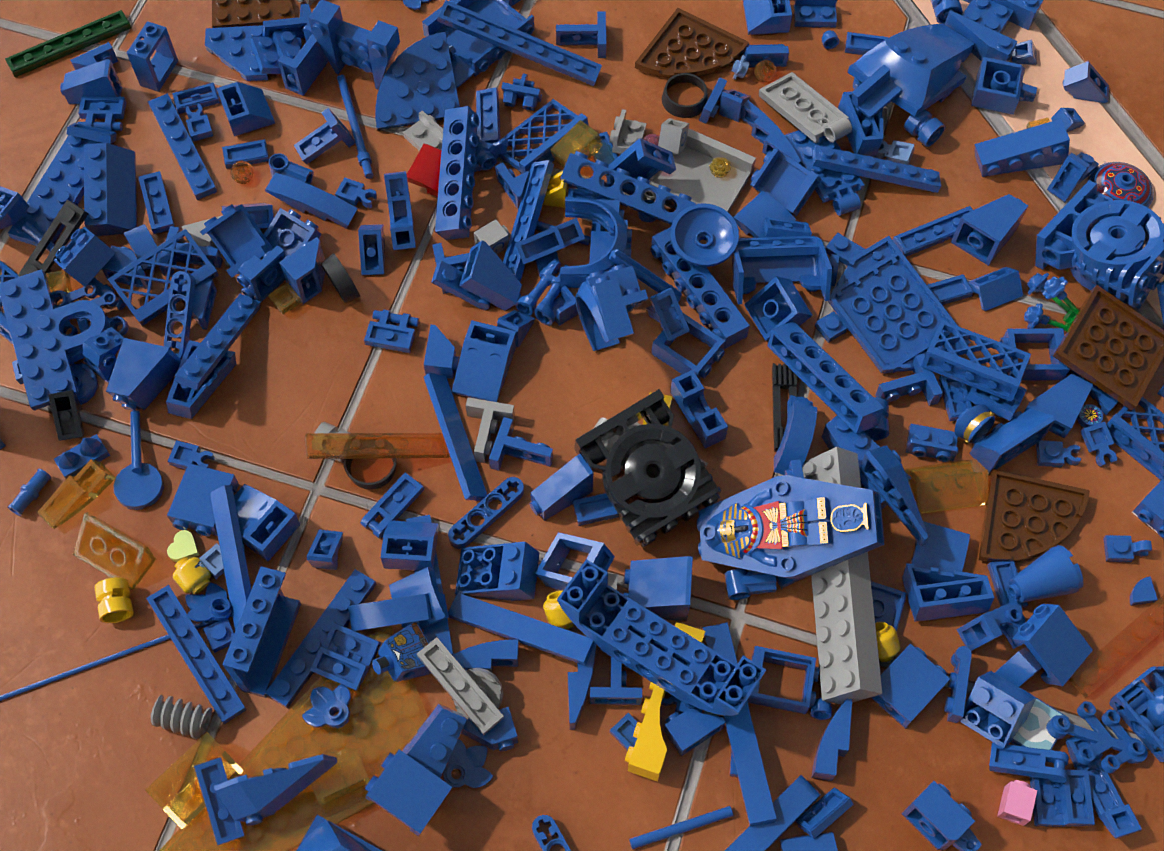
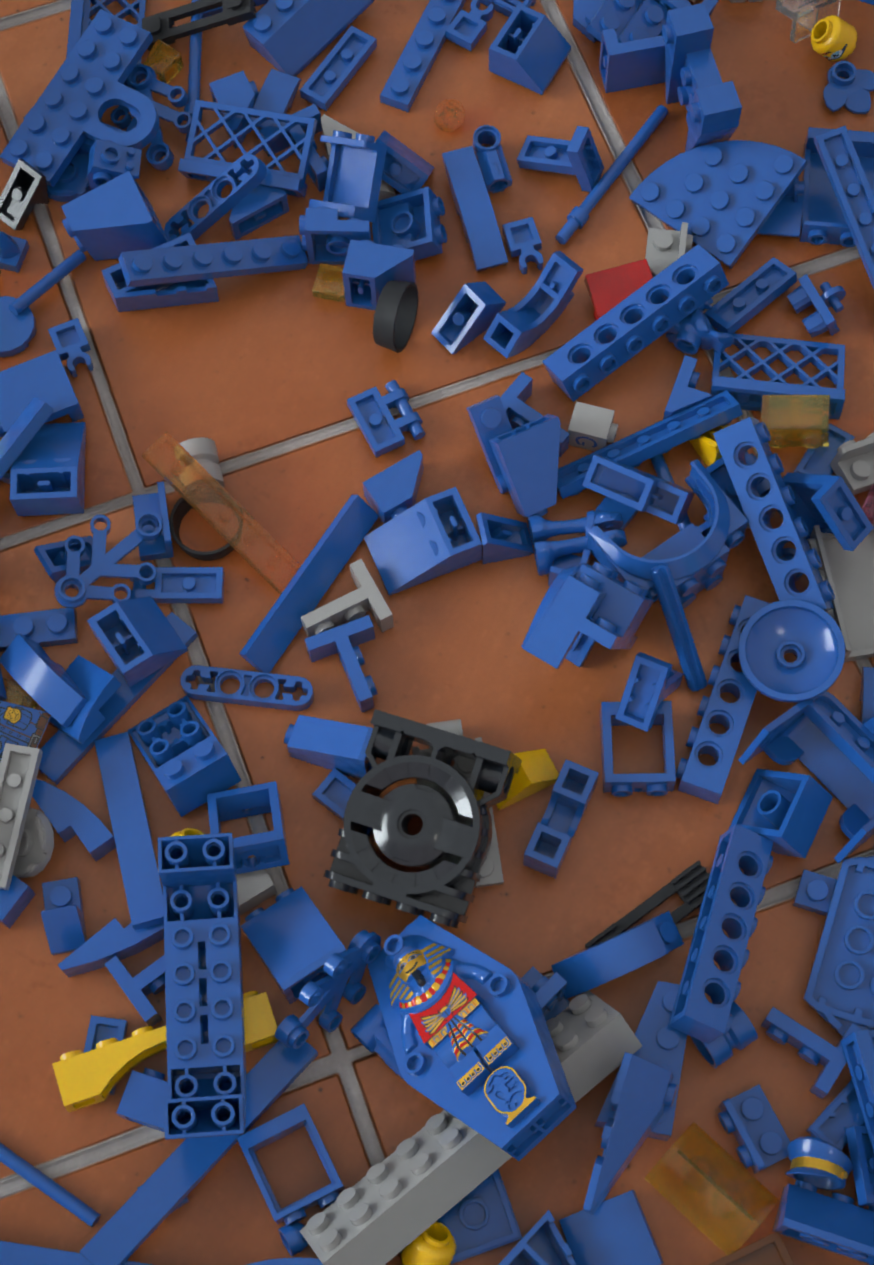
camera: 55 degrees right, 5 degrees up
(83, 256) = (204, 56): blue slope -> none
(251, 152) = (478, 99): blue tile -> none
(344, 489) = (157, 503): none -> blue panel
(349, 529) = (105, 564): none -> blue plant
(538, 704) = (63, 915): none -> blue slope
(711, 620) = (328, 991): none -> blue plant

